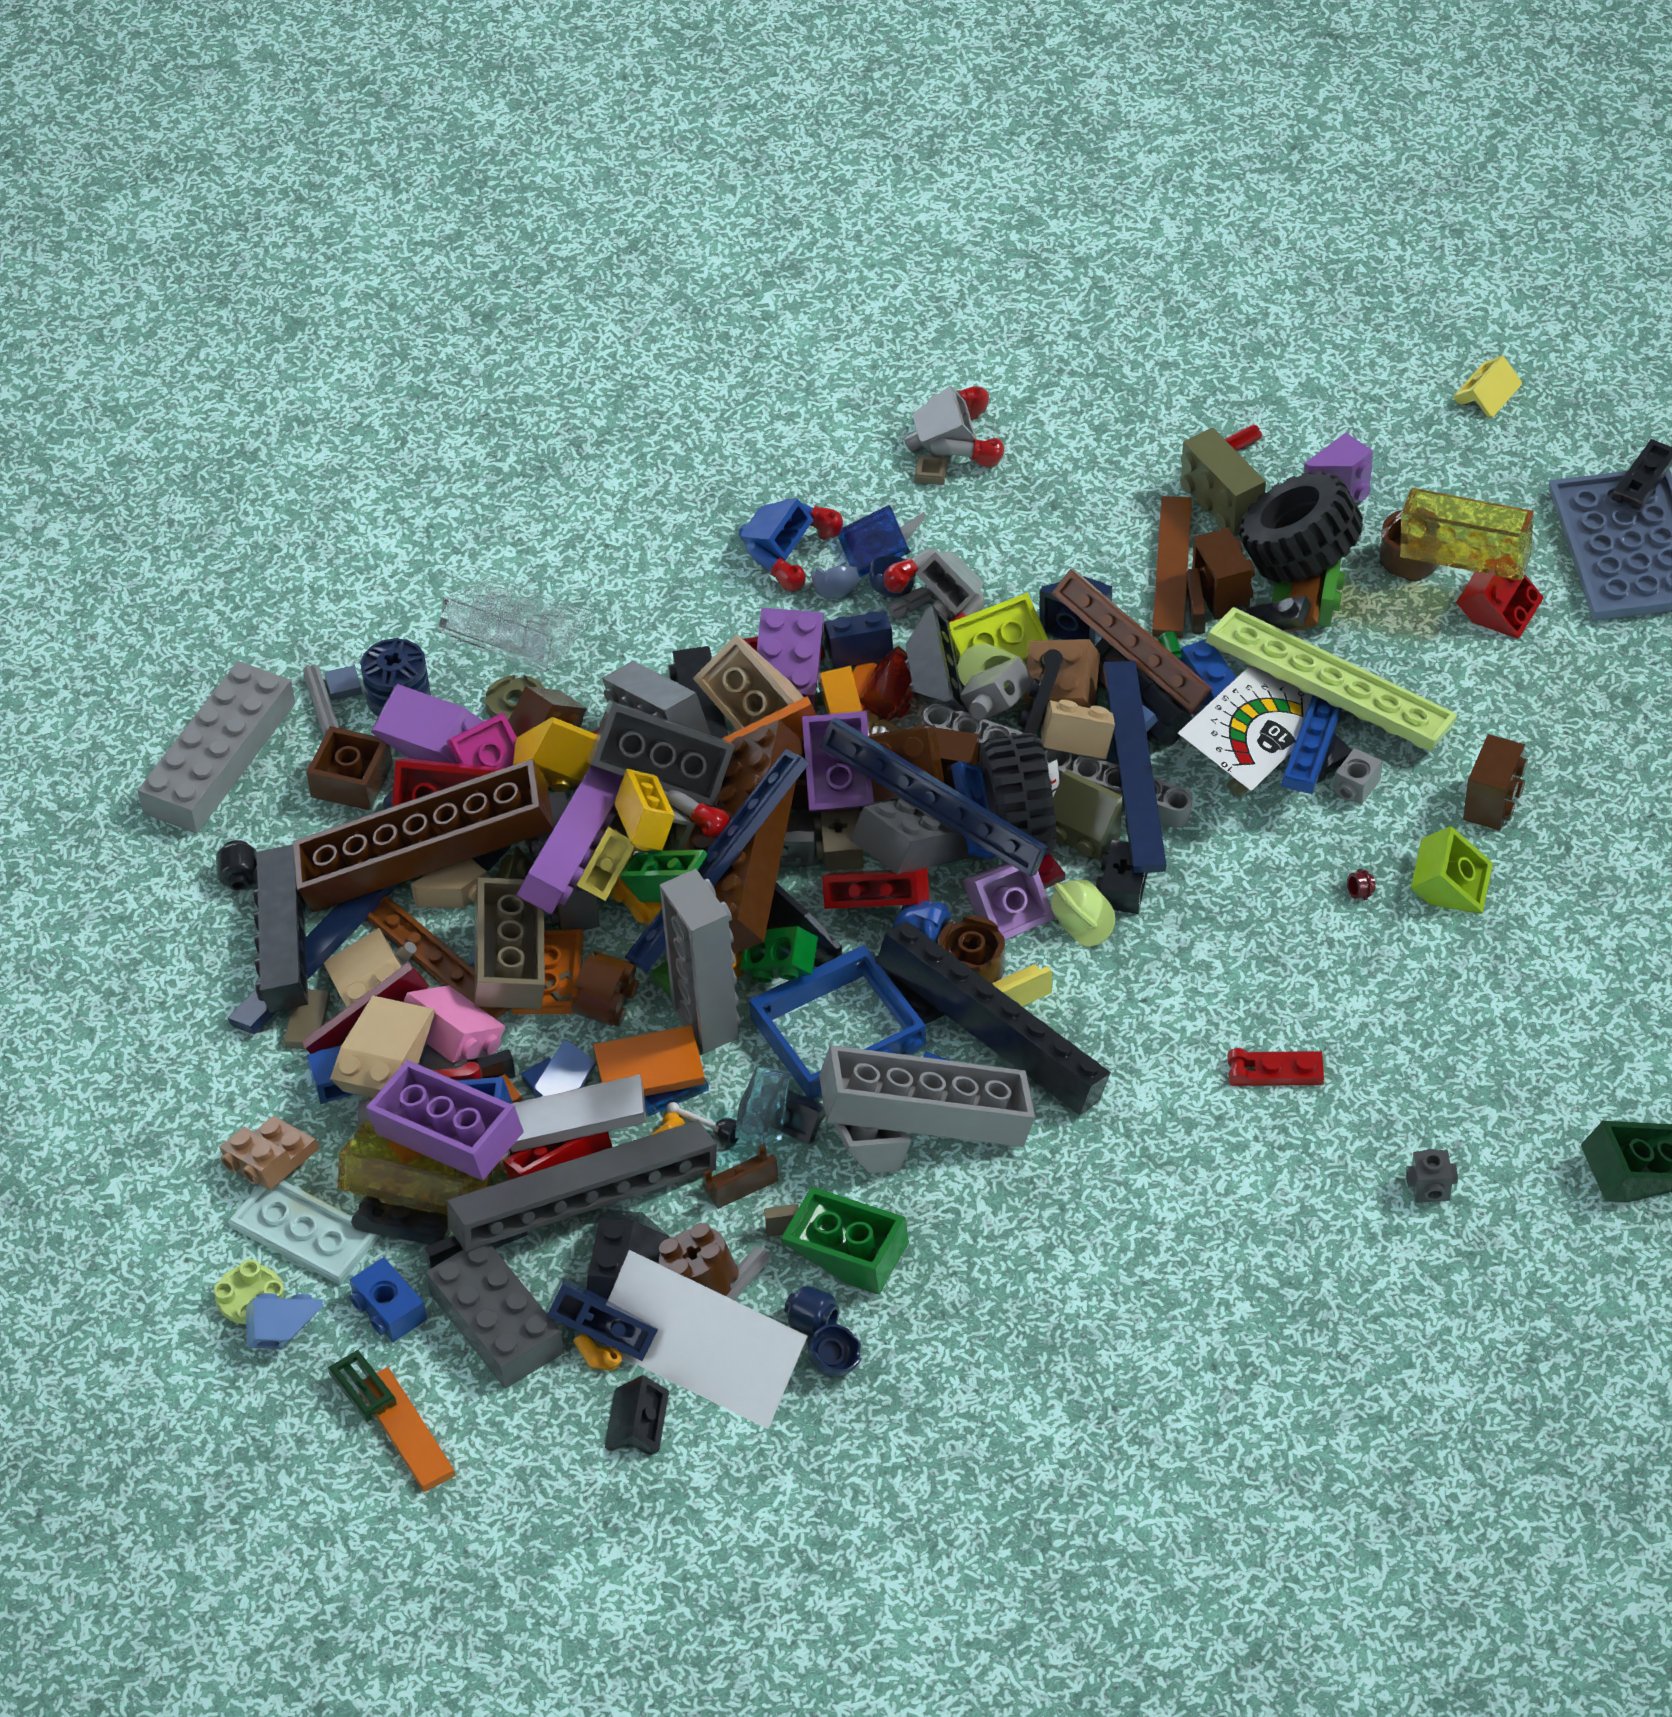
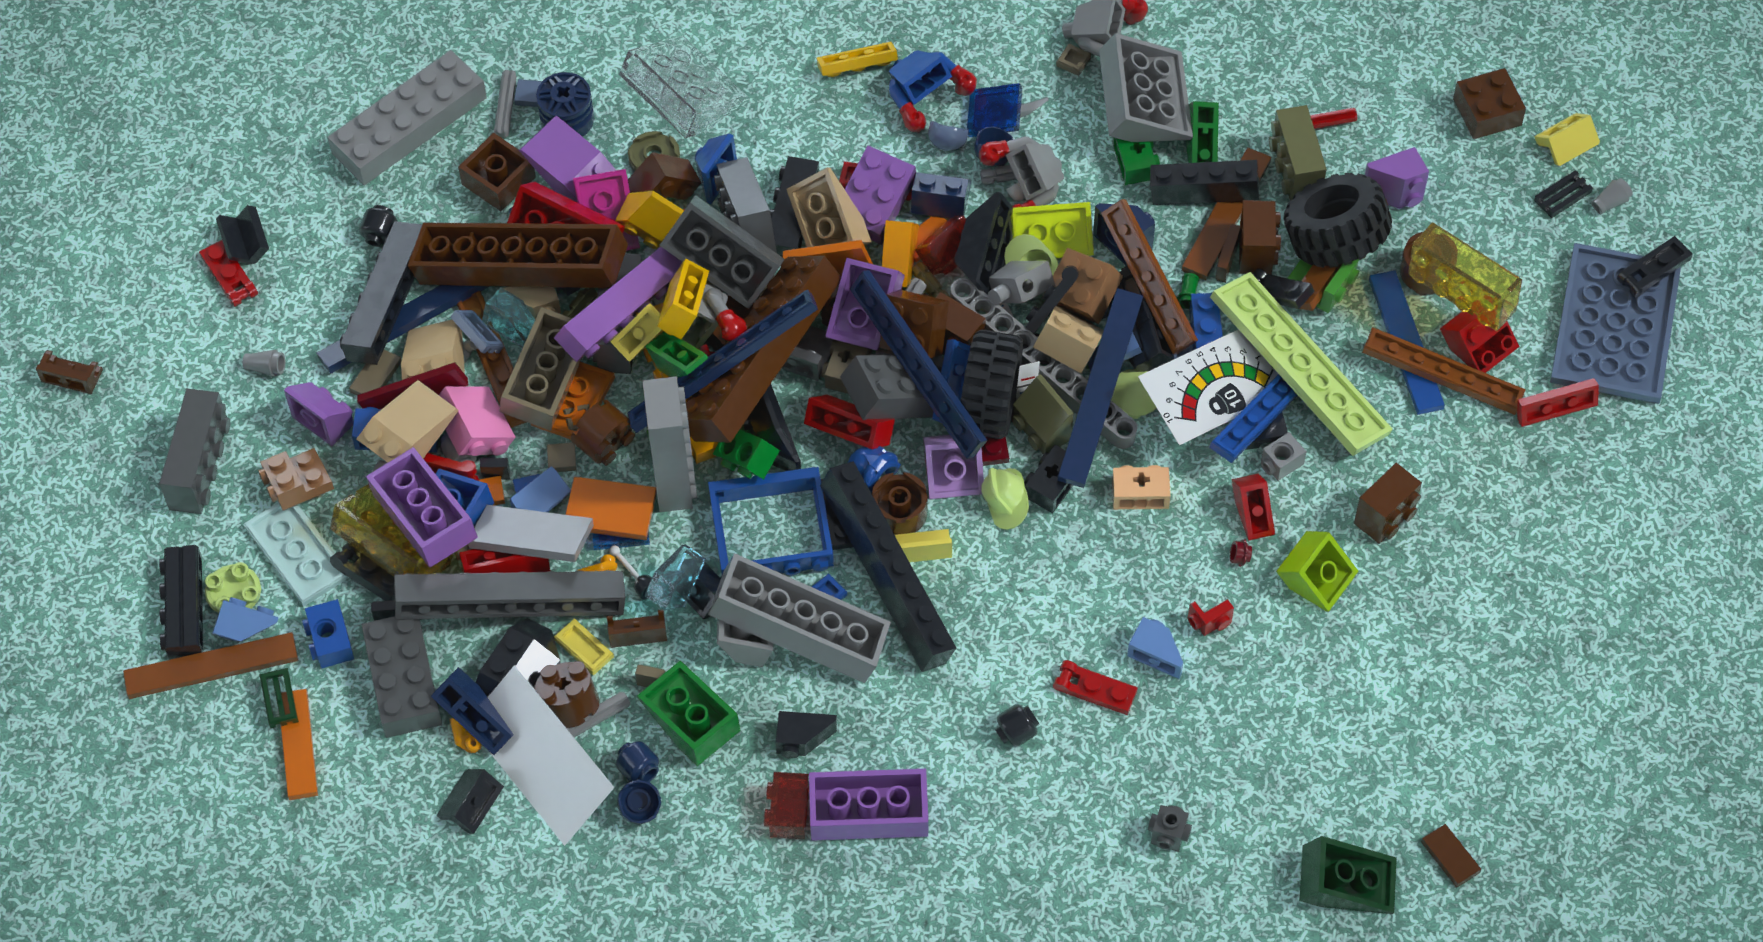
camera: 20 degrees right, 10 degrees up
(82, 970) = (228, 273): none -> red plate
(85, 924) = (243, 236): none -> black panel
(139, 1159) = (194, 451): none -> dark grey brick
(172, 1046) = (265, 362): none -> light grey cone
(197, 1325) = (183, 601): none -> black brick
(260, 1382) = (210, 665): none -> dark orange tile
(263, 1075) = (319, 411): none -> medium lavender slope
(408, 933) = (477, 331): none -> sand blue tile
(439, 909) = (508, 316): none -> clear light blue slope
(566, 1029) = (562, 457): none -> dark tan tile
(587, 683) = (715, 151): none -> blue slope
(682, 1214) = (583, 646): none -> light yellow tile
(696, 538) = (857, 59): none -> yellow plate
(980, 1217) = (802, 732): none -> black slope
(1005, 1295) = (788, 805): none -> clear red brick
(1029, 469) = (1144, 91): none -> light grey slope
(1046, 538) = (1135, 160): none -> green brick
(1093, 1263) = (868, 804): none -> medium lavender brick
(1110, 500) = (1204, 124): none -> green slope
(1137, 539) = (1204, 182): none -> black brick
(1173, 763) = (1132, 395): none -> yellowish green dish
(1212, 1131) = (1017, 725): none -> black head
(1223, 855) = (1128, 493): none -> light nougat brick
(1324, 1005) = (1156, 647): none -> medium blue slope
(1352, 832) = (1254, 505): none -> red slope
(1362, 961) = (1215, 618): none -> red bracket
(1392, 377) = (1489, 103): none -> reddish brown brick
(1426, 629) = (1400, 323): none -> blue tile
(1480, 642) = (1443, 370): none -> dark orange tile
(1503, 433) = (1578, 182): none -> black tile
(1564, 425) = (1612, 196): none -> light grey cone
(1613, 634) = (1557, 402): none -> red plate

